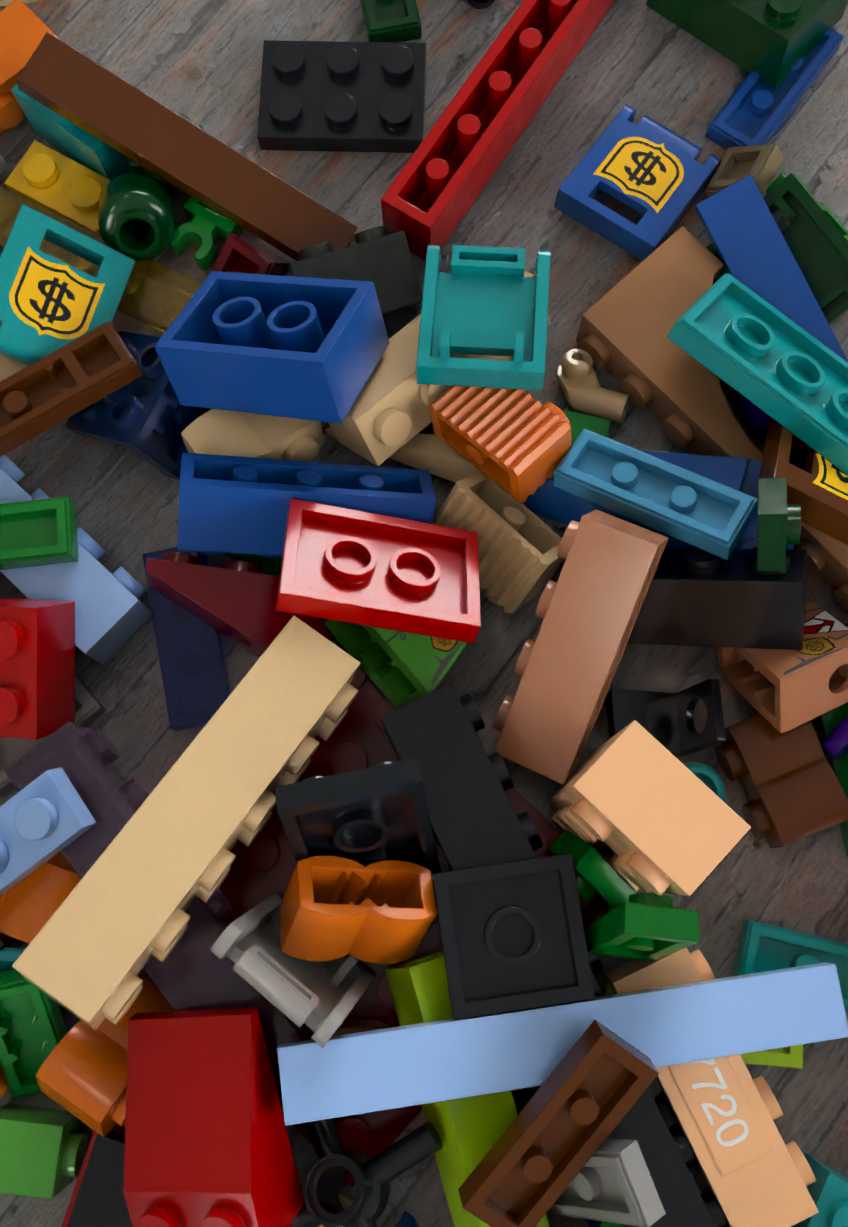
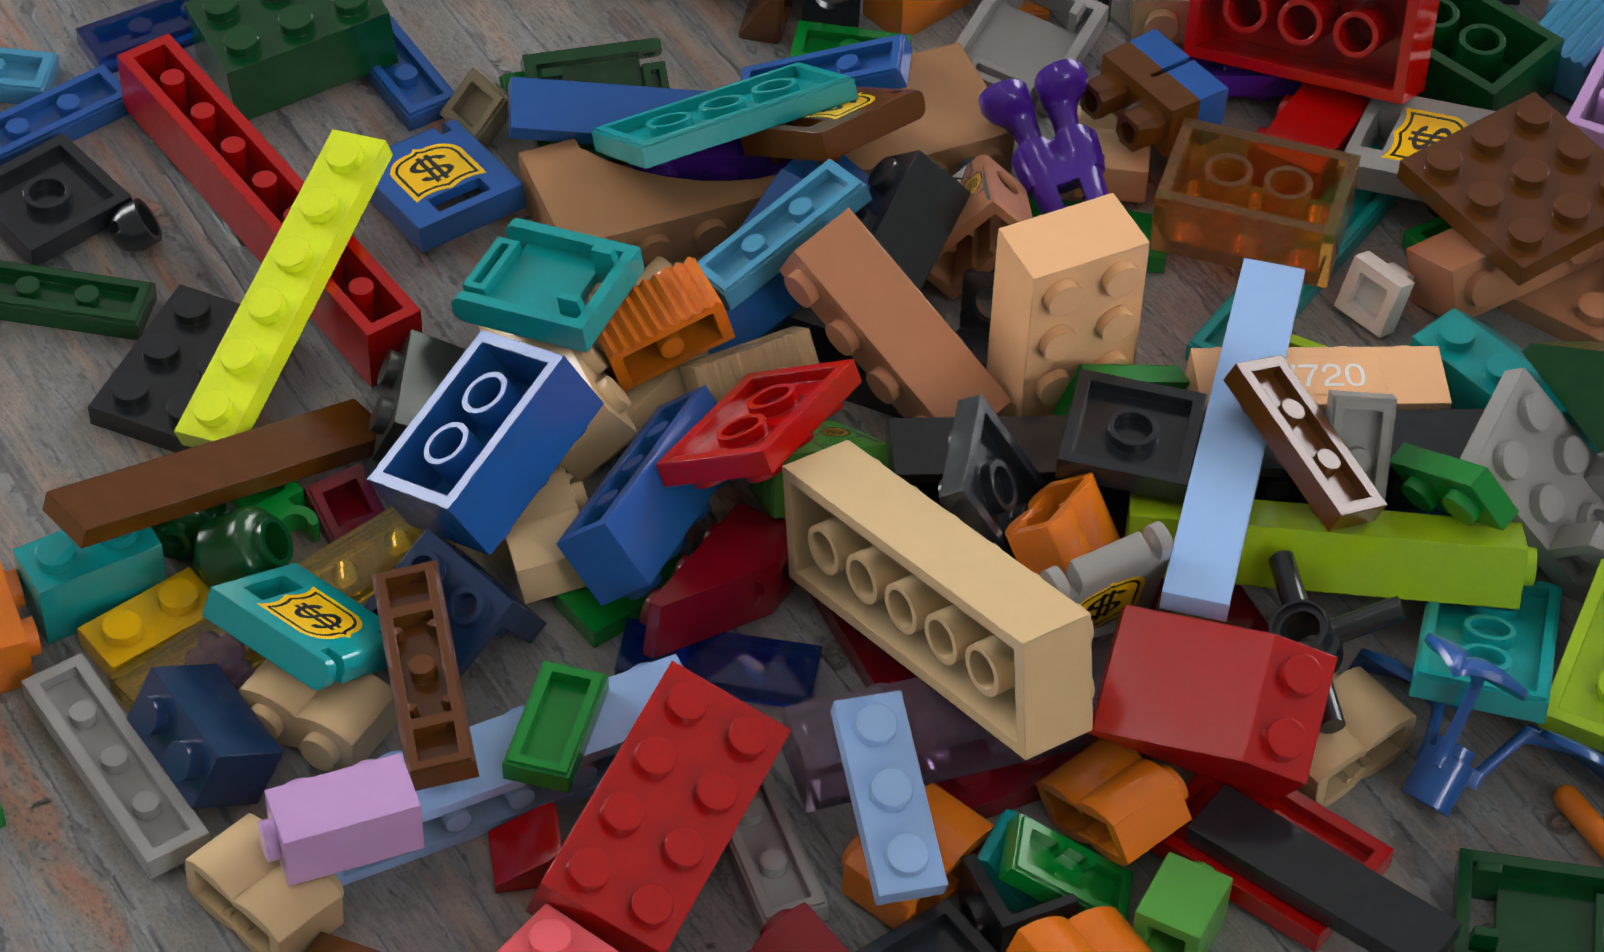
camera: 75 degrees left, 30 degrees down
(411, 111) = (285, 289): none -> neon yellow plate
(643, 929) = (1165, 331): green plate -> none
(777, 524) = (861, 148): dark green plate -> none

